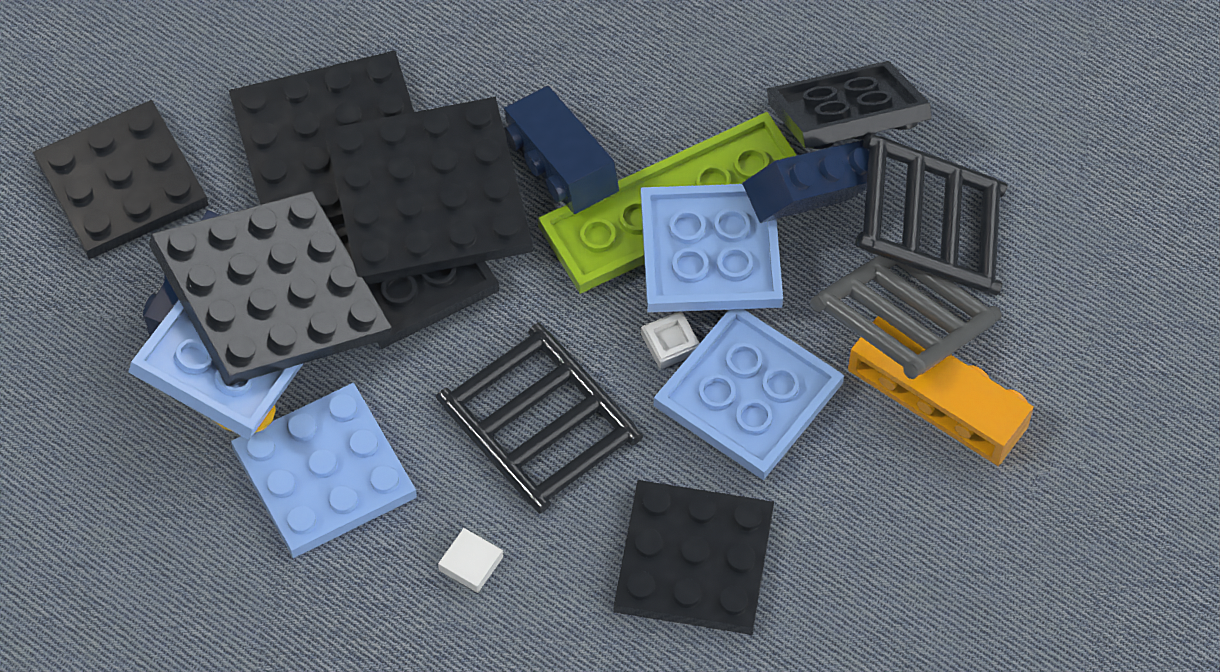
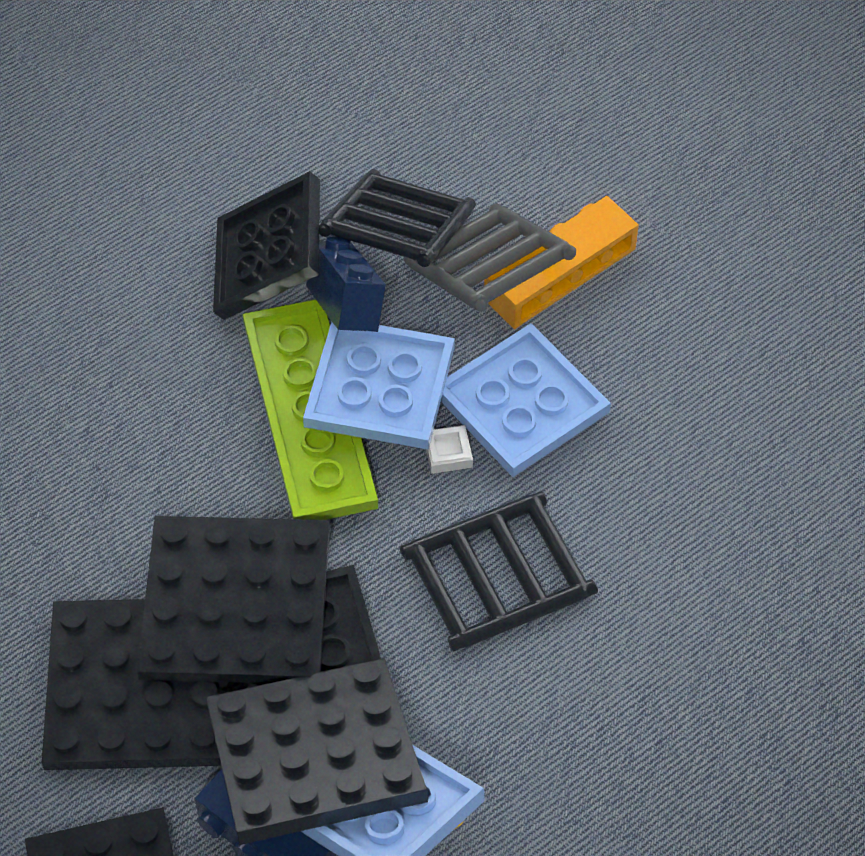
camera: 75 degrees left, 5 degrees down
(324, 470) = (519, 756): light blue plate -> none
(470, 560) = (633, 656): white tile -> none
(560, 150) = (231, 476): dark blue brick -> none
(694, 557) = (671, 481): black plate -> none

